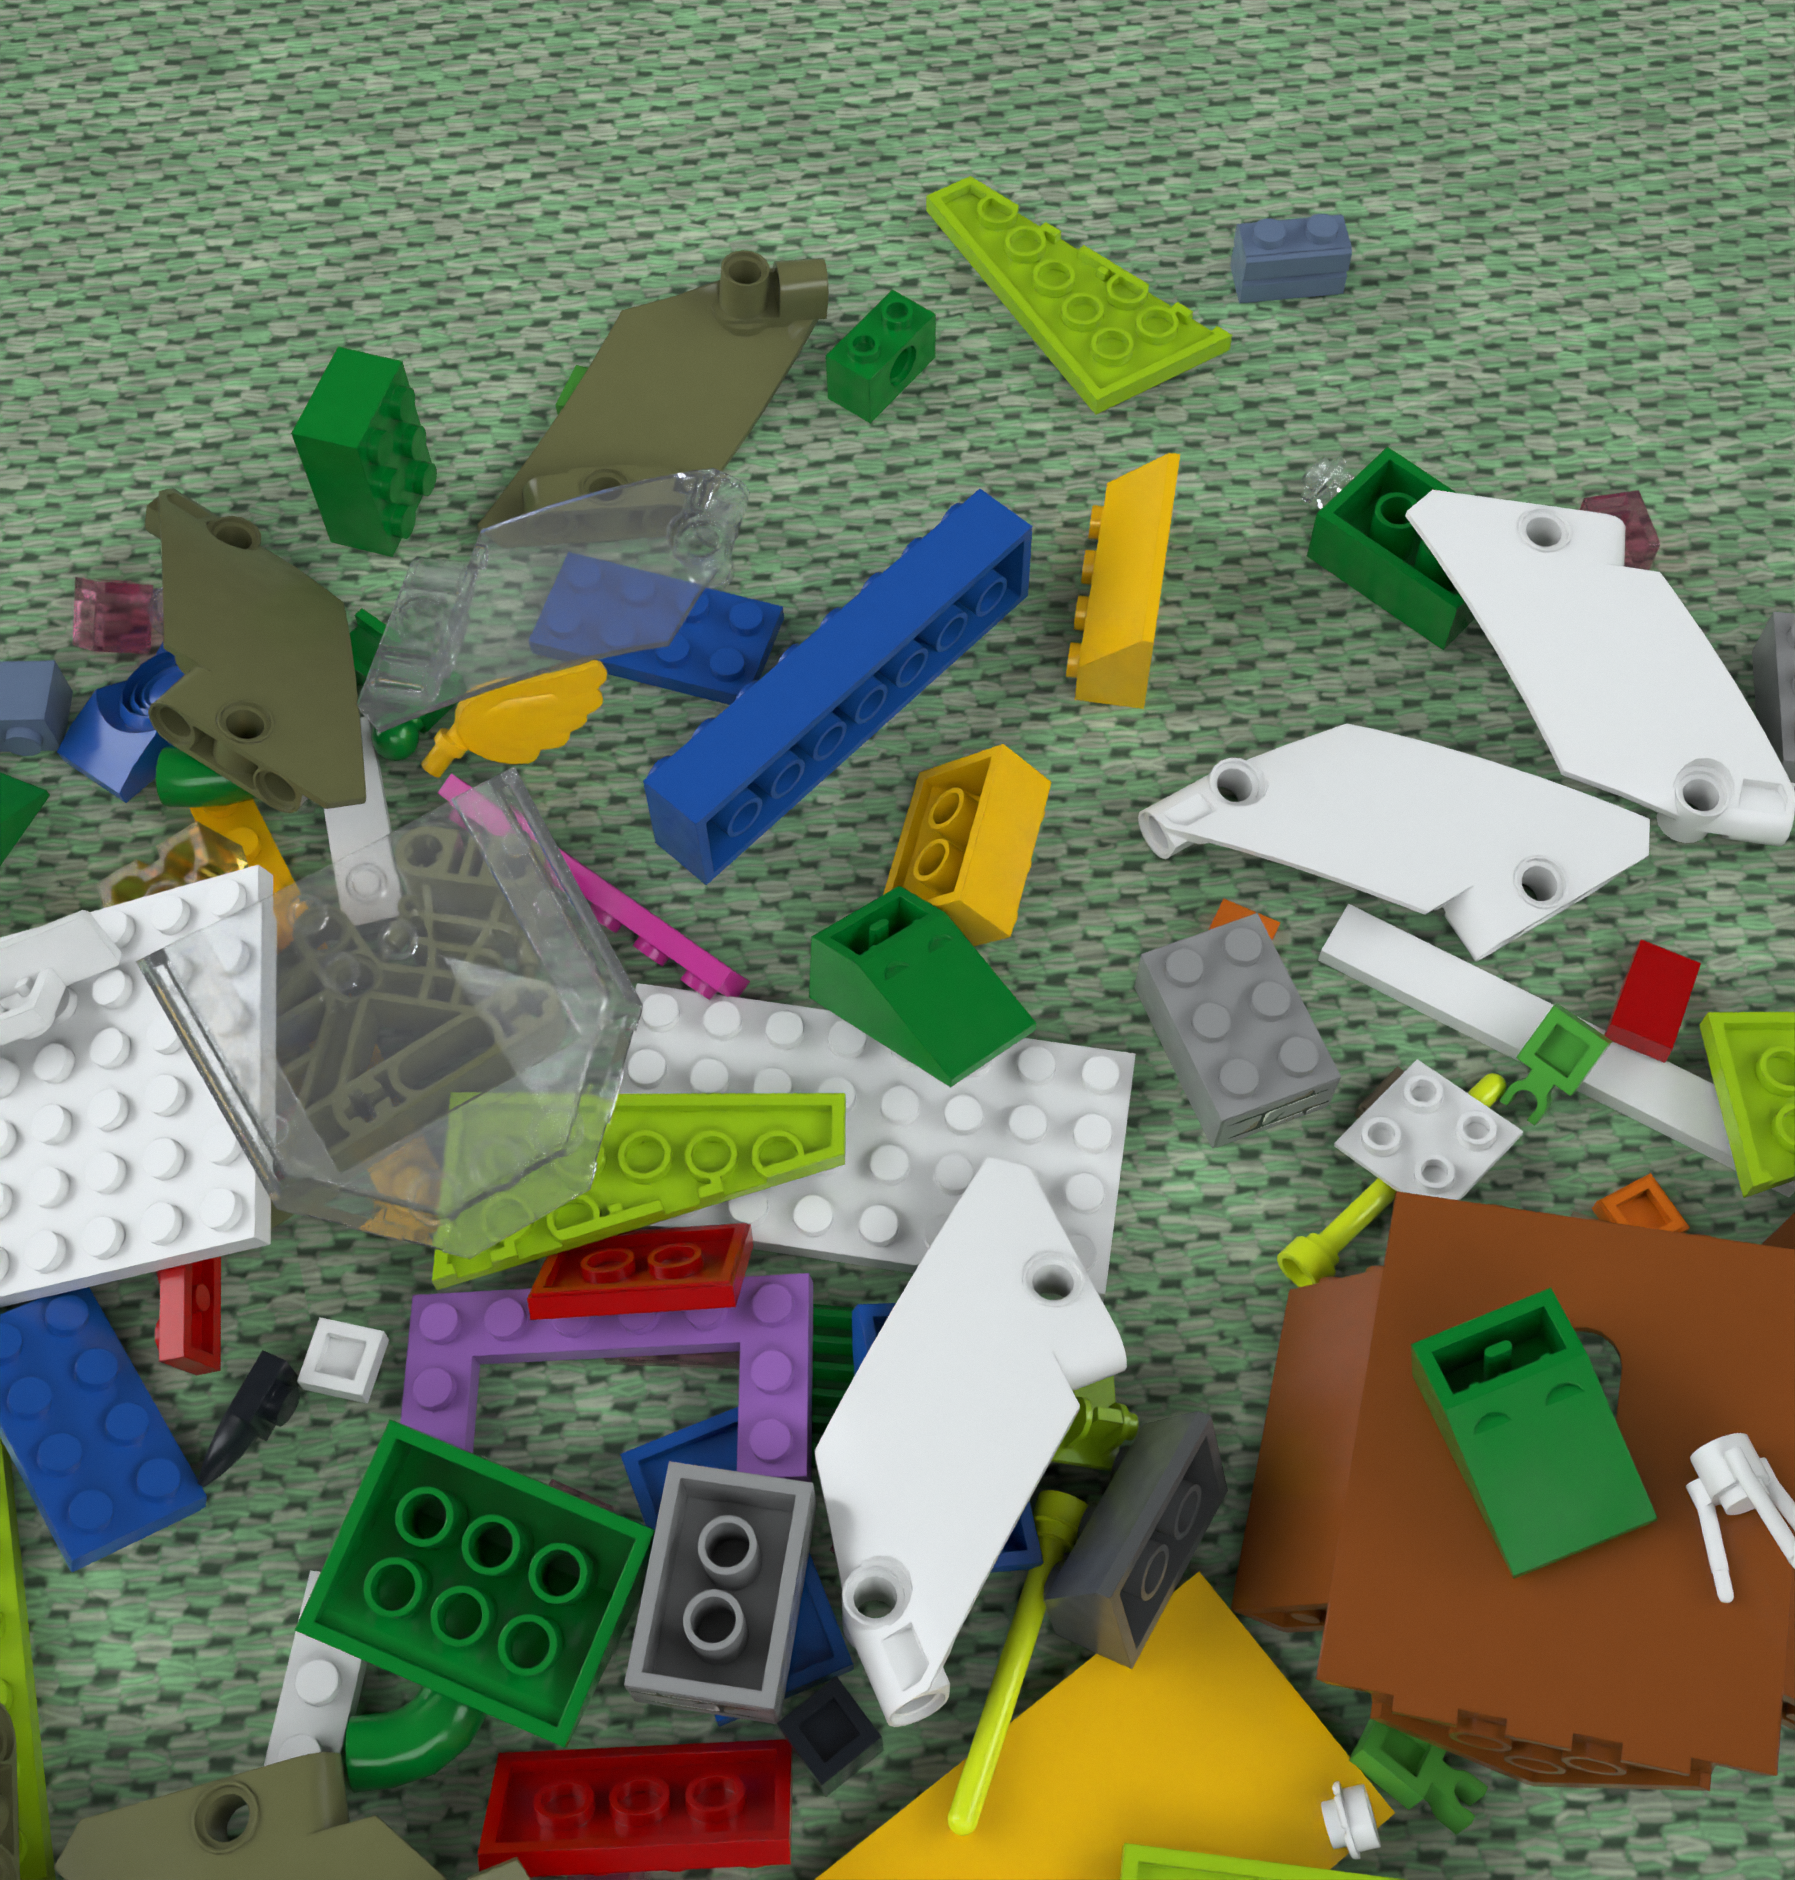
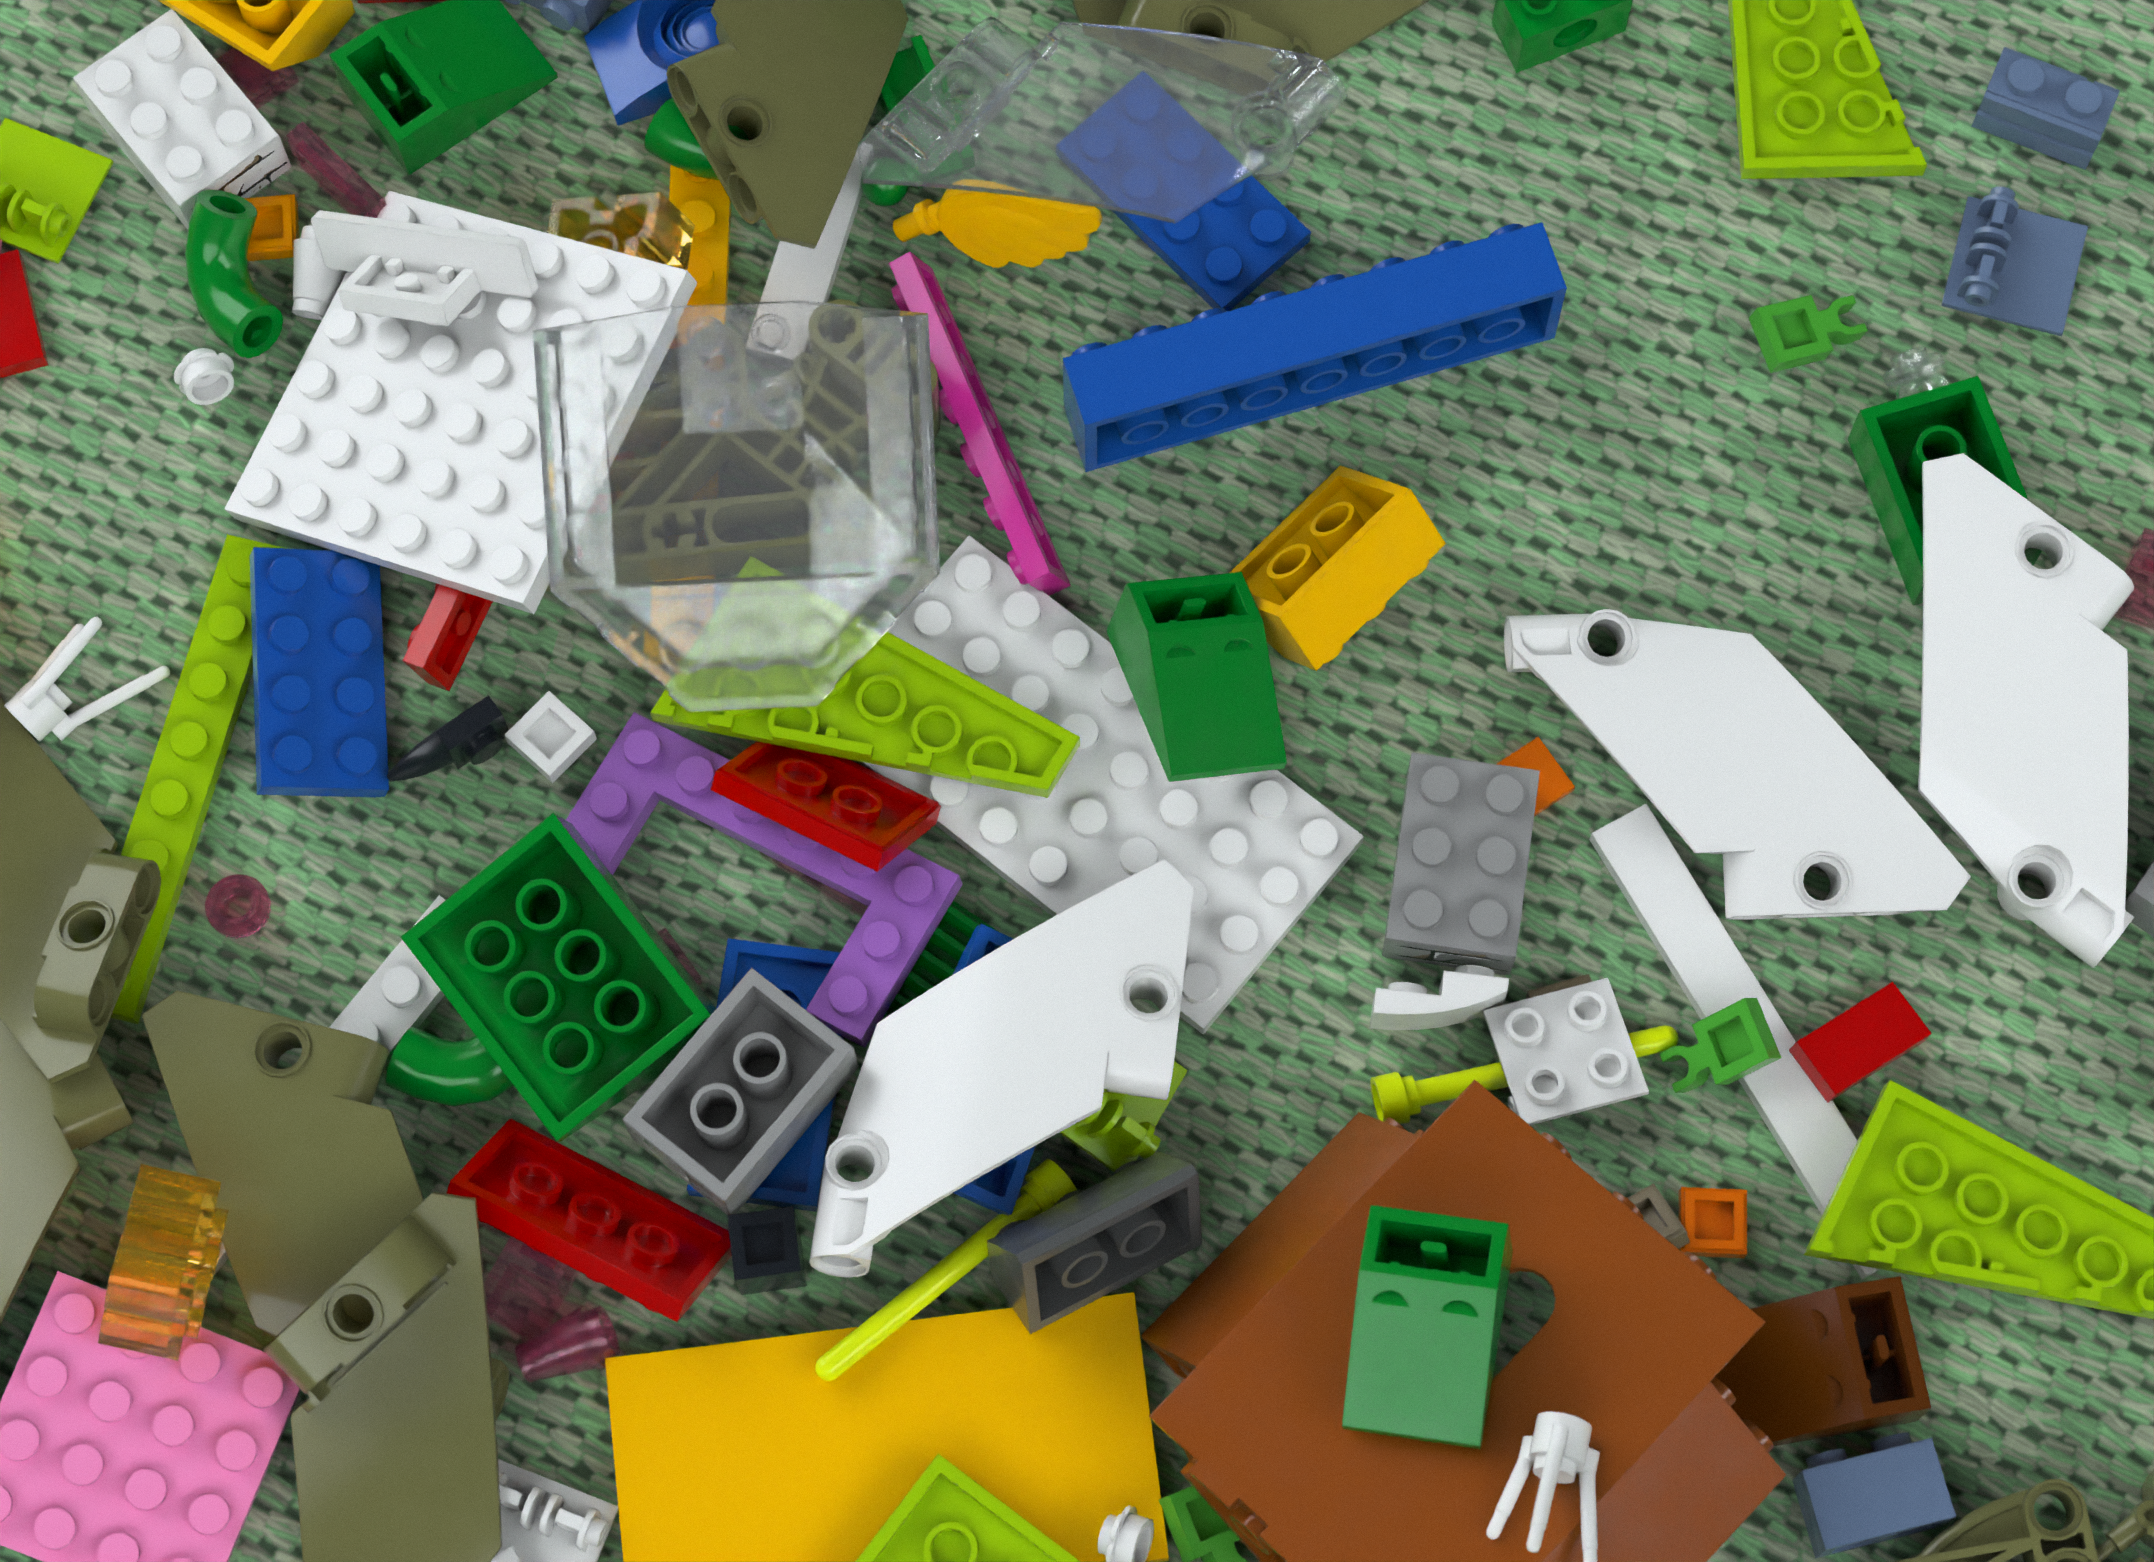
camera: 30 degrees right, 10 degrees up
(87, 1686) = (227, 891): none -> clear pink plate
(1125, 586) = (1641, 383): yellow slope -> none
(1219, 497) = (1799, 334): none -> bright green plate
(1303, 1146) = (1460, 999): none -> white slope
(1340, 375) = (2014, 263): none -> sand blue hinge

